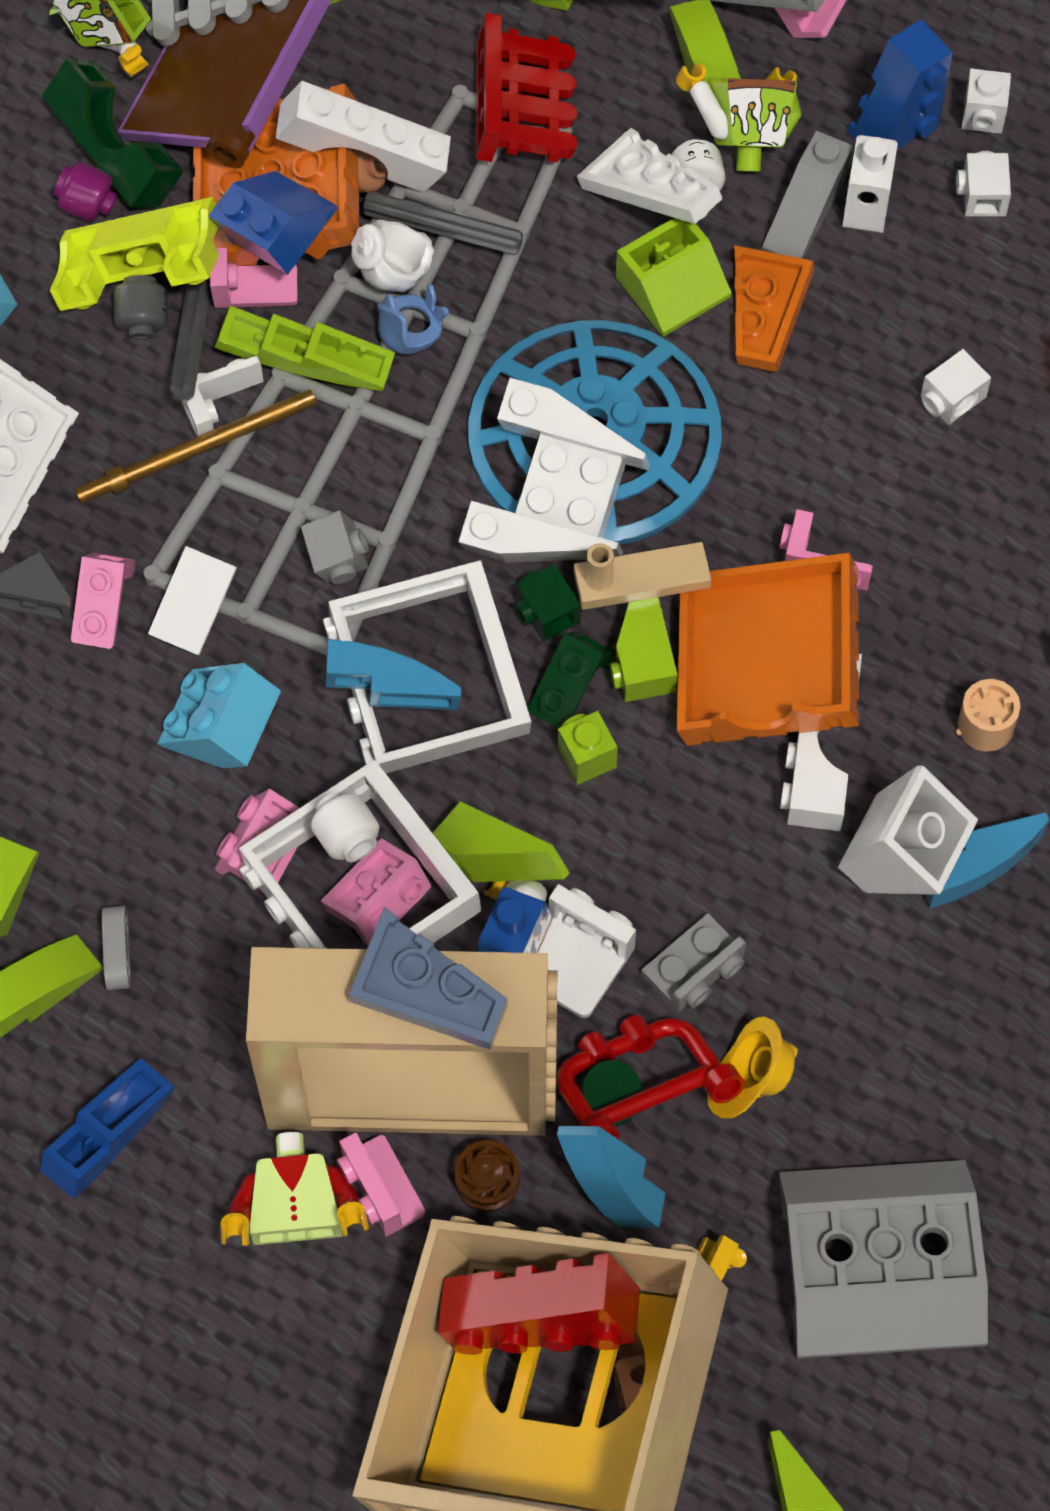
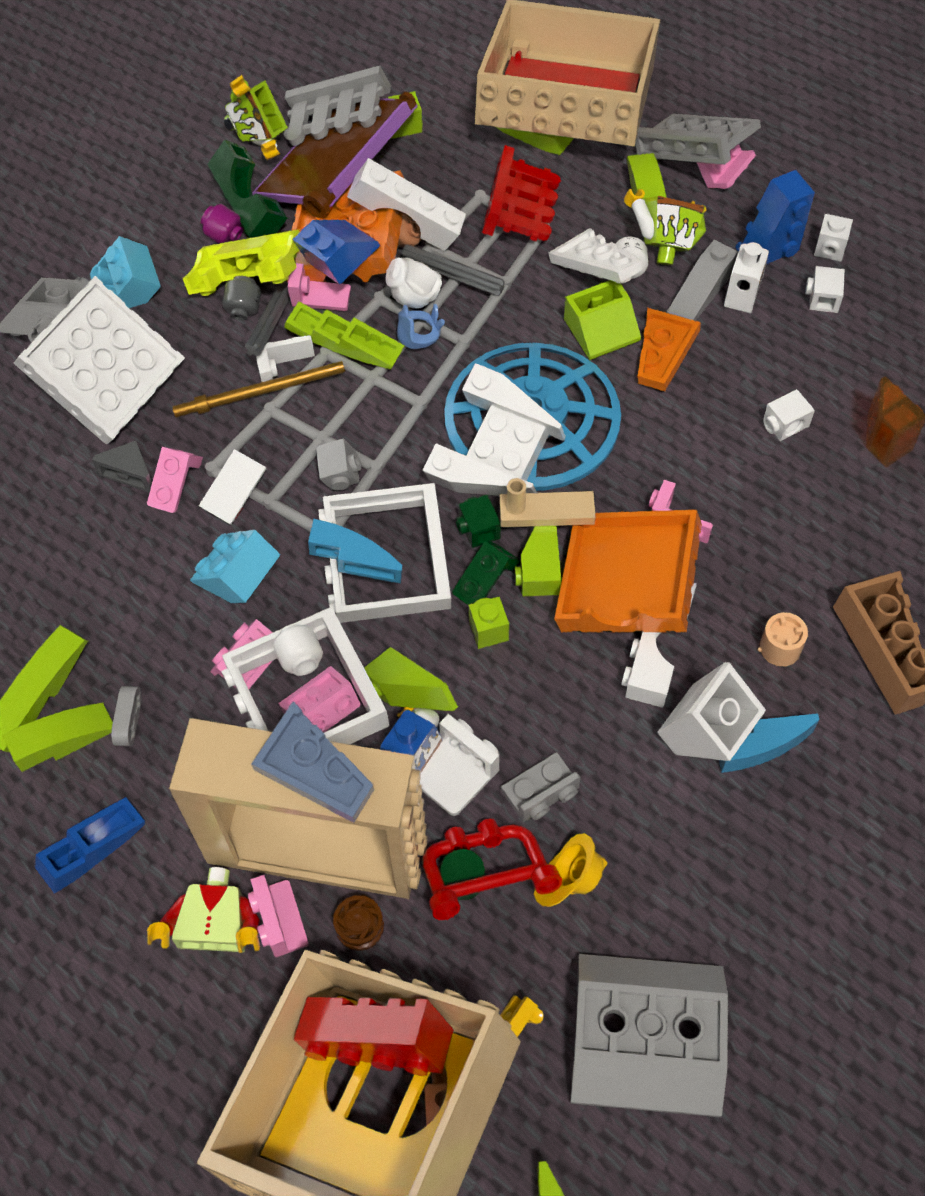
camera: 10 degrees right, 5 degrees down
(612, 1176) = (449, 937): dark azure slope -> none

